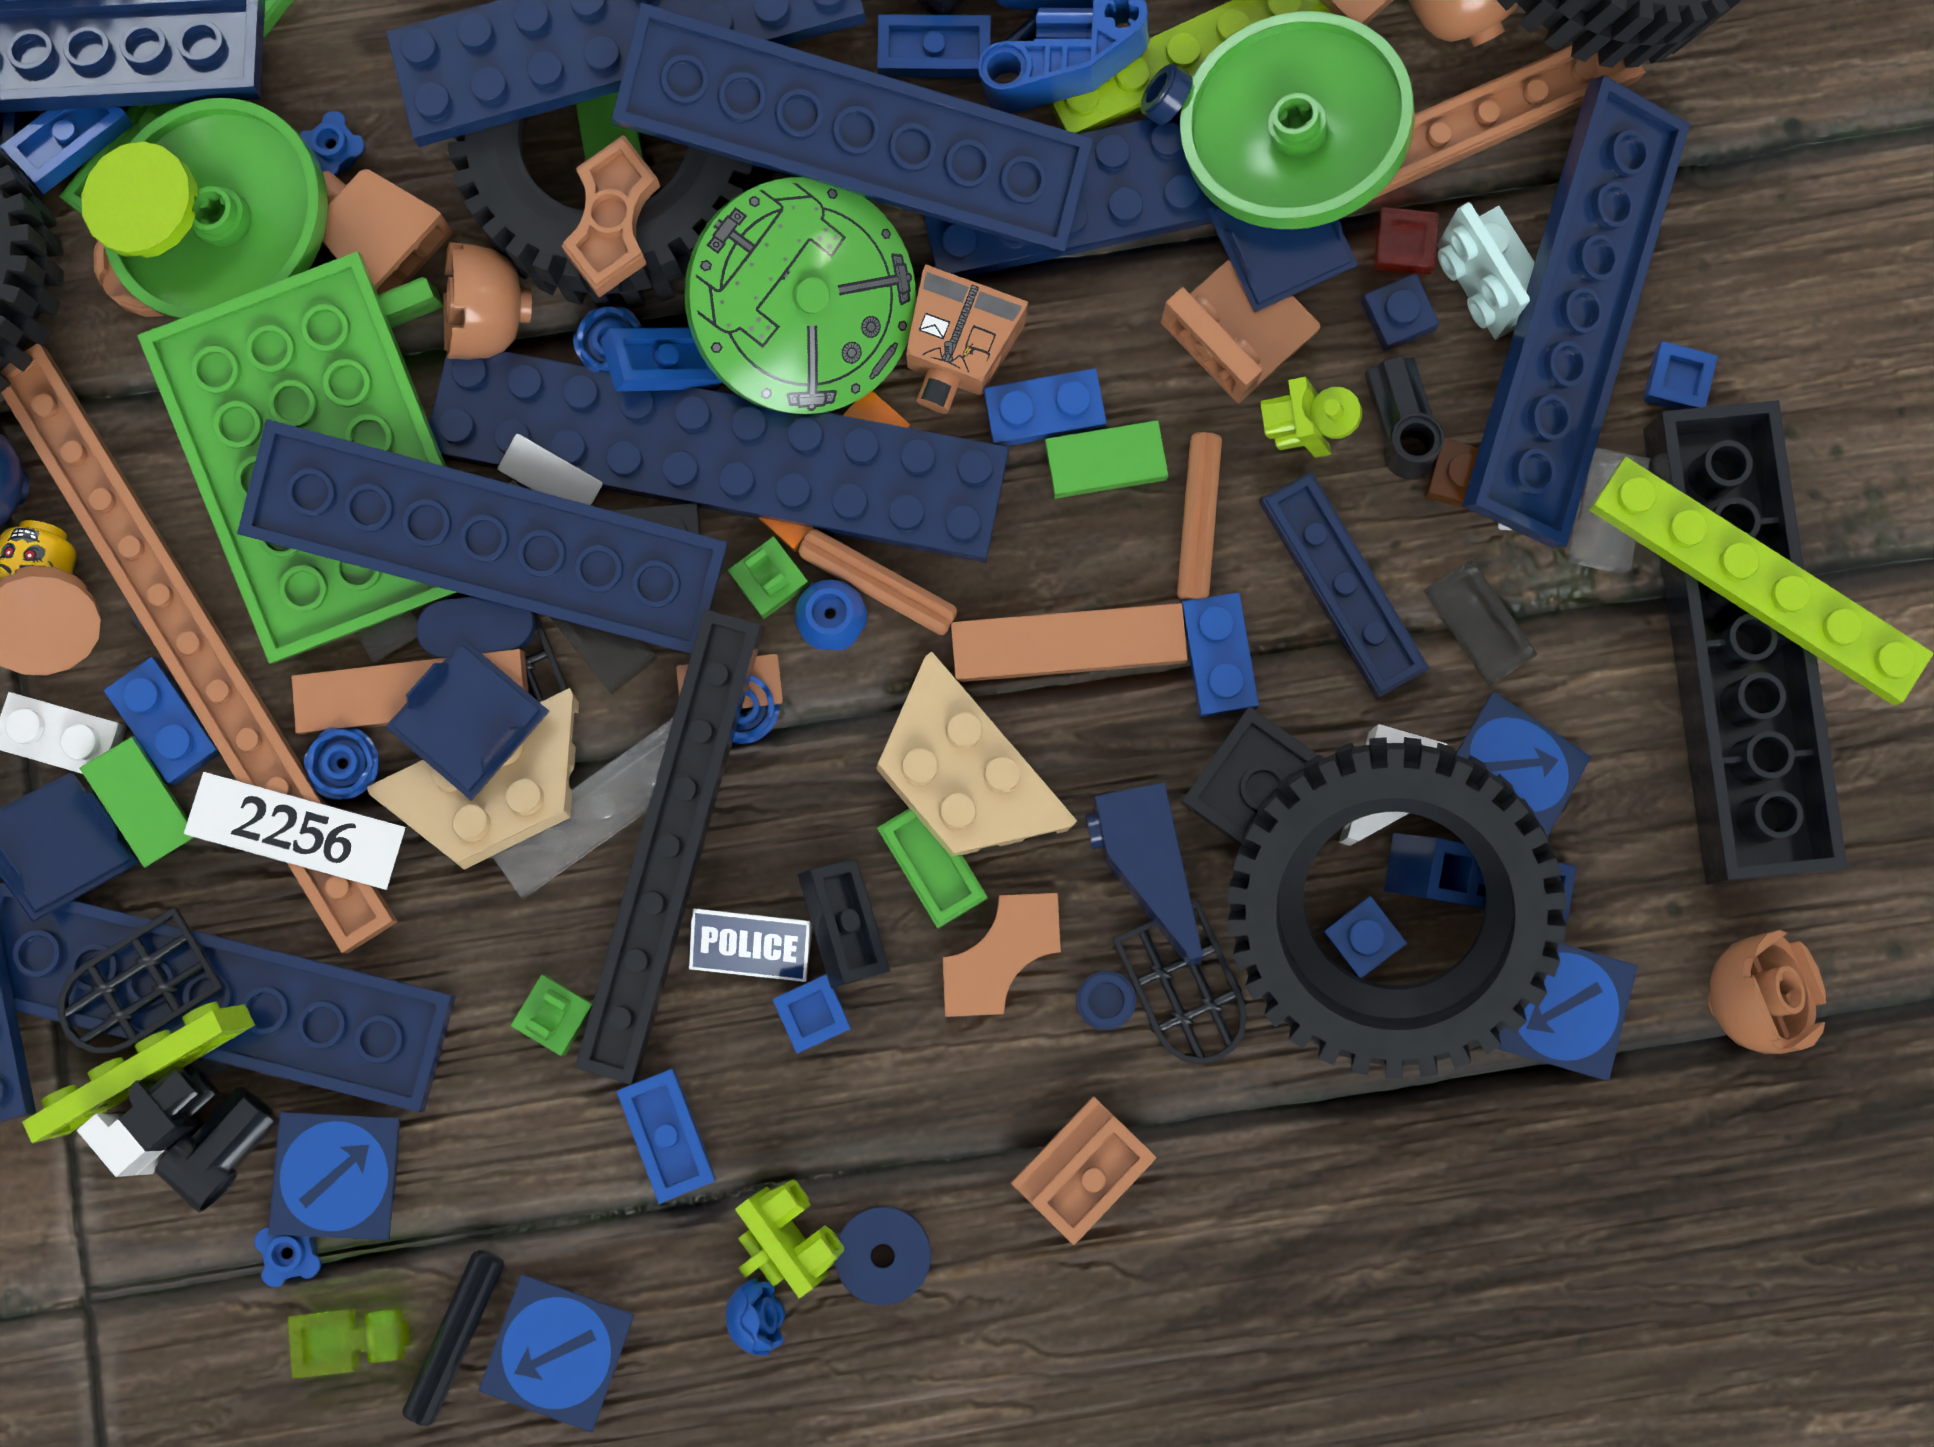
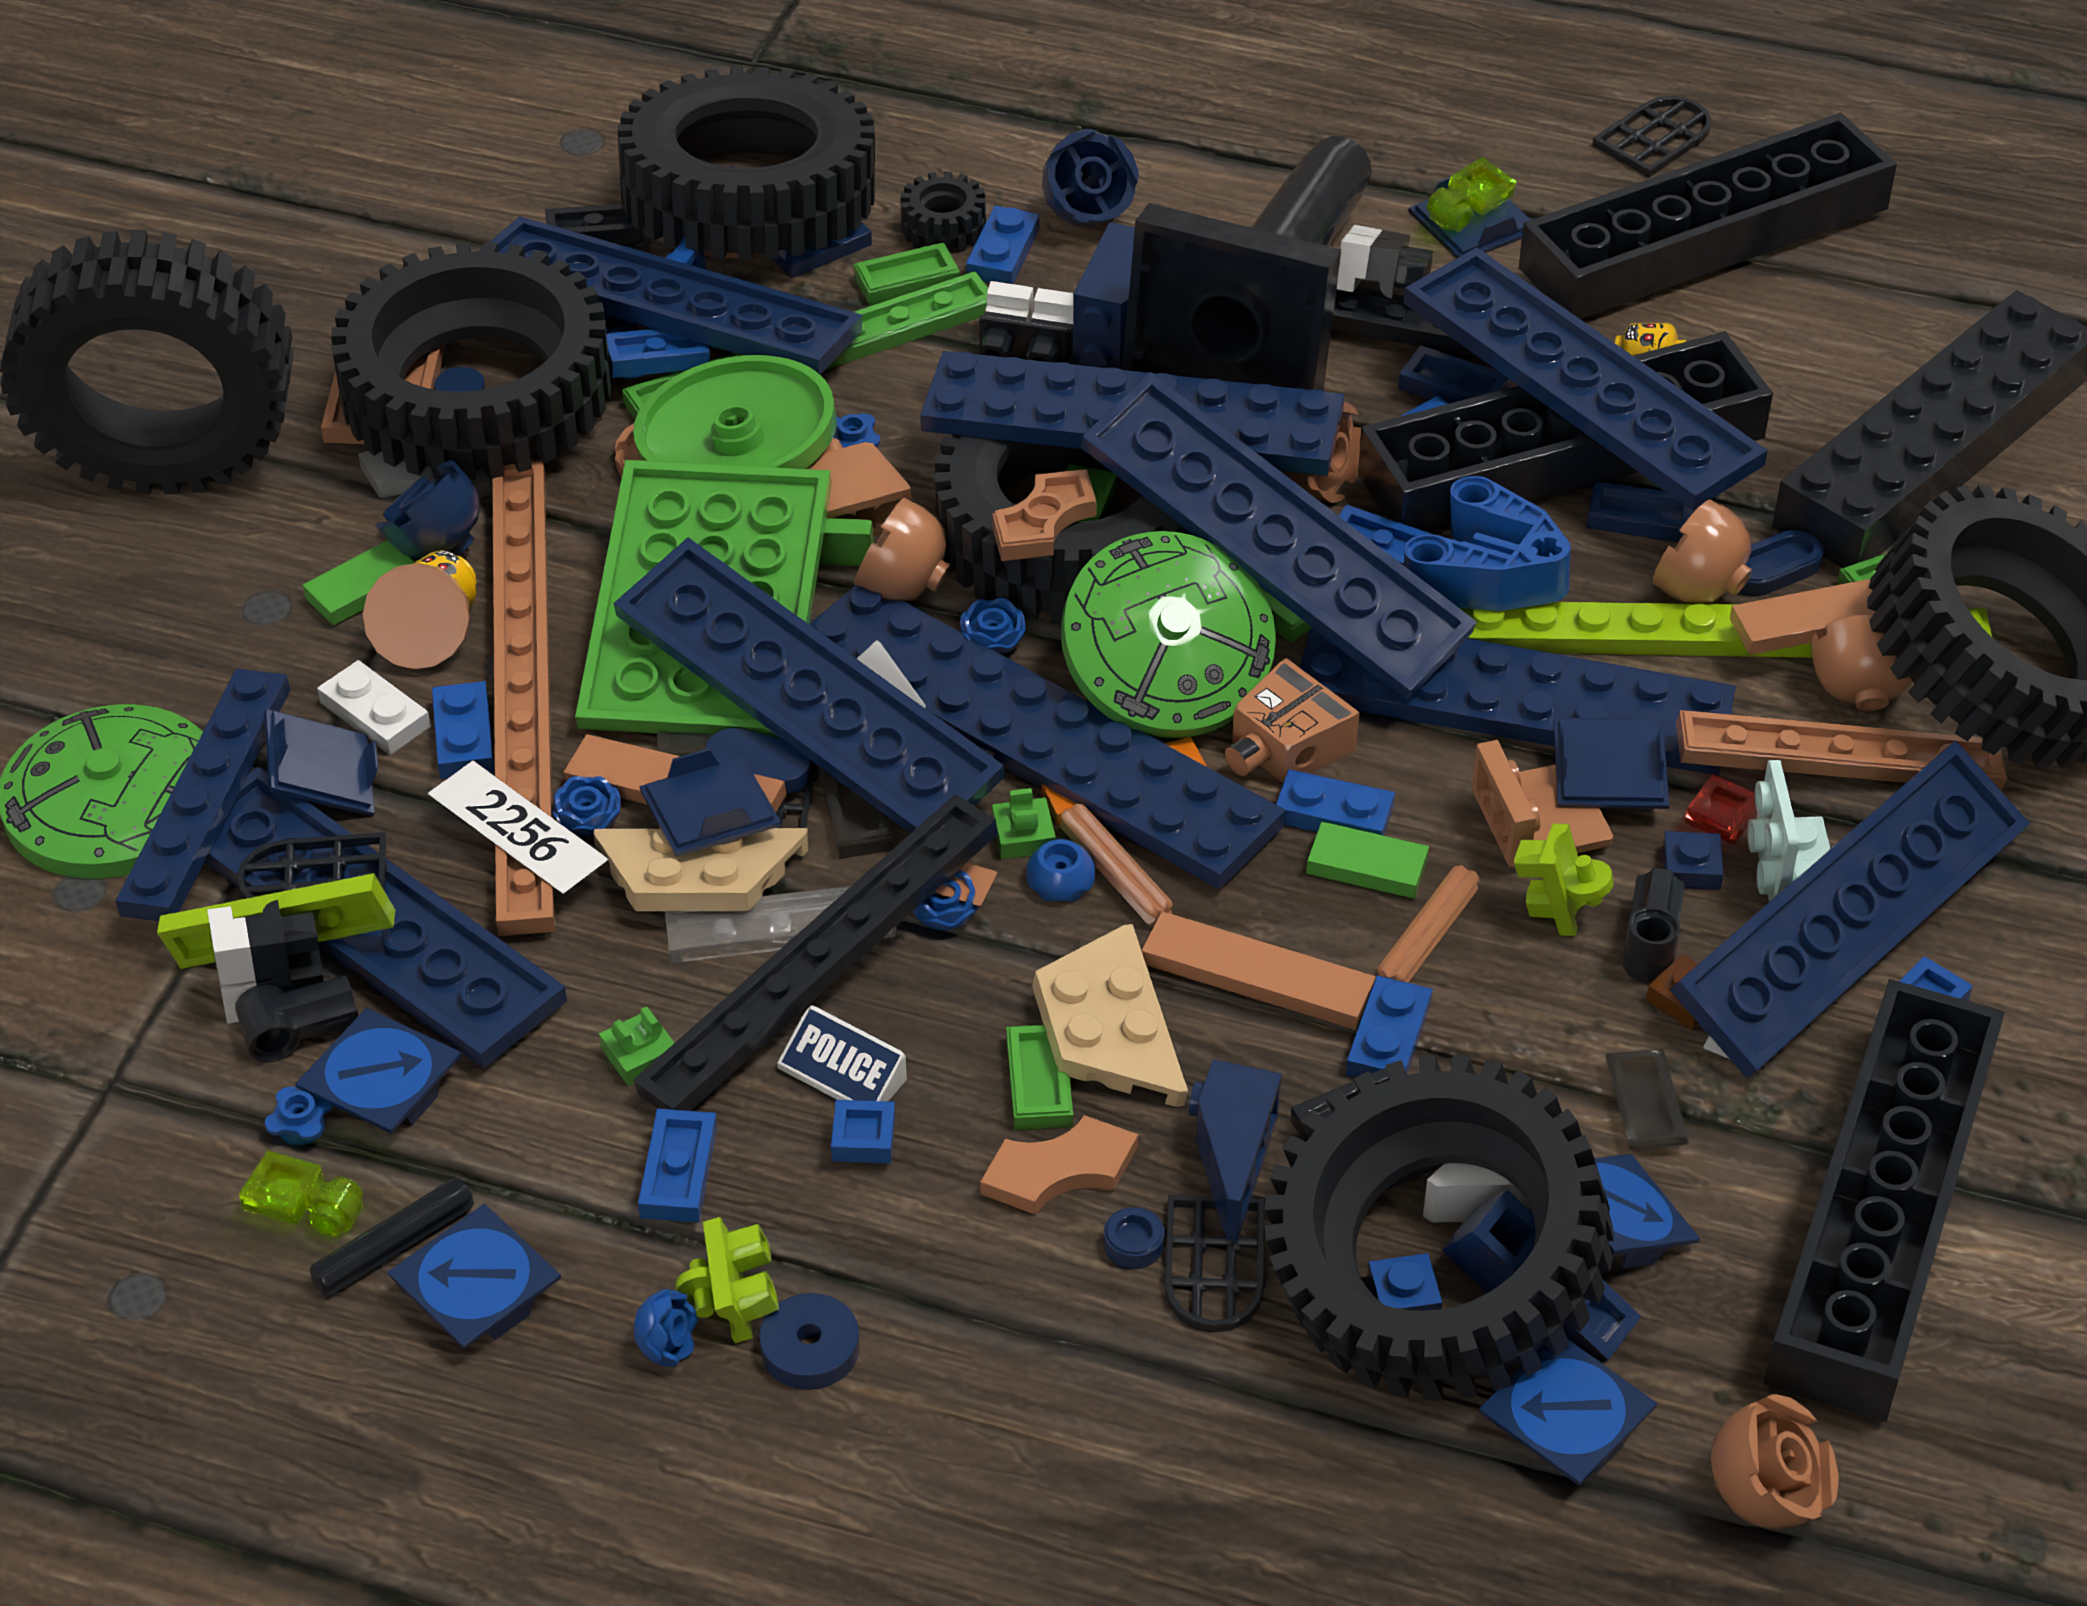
camera: 25 degrees right, 35 degrees down
(138, 800) = (406, 765): bright green tile -> none
(139, 200) = (684, 392): lime tile -> none
(656, 360) = (1024, 640): blue plate -> none
(843, 923) = (933, 1076): black plate -> none
(1083, 1170) = (1034, 1347): nougat plate -> none
(1166, 94) = (1559, 628): dark blue tile -> none
(1298, 120) = (1661, 670): bright green dish -> none
(1344, 585) = (1533, 1014): dark blue tile -> none
(1595, 540) = (1813, 1069): clear plate -> none
(1761, 582) = (1921, 1129): lime plate -> none

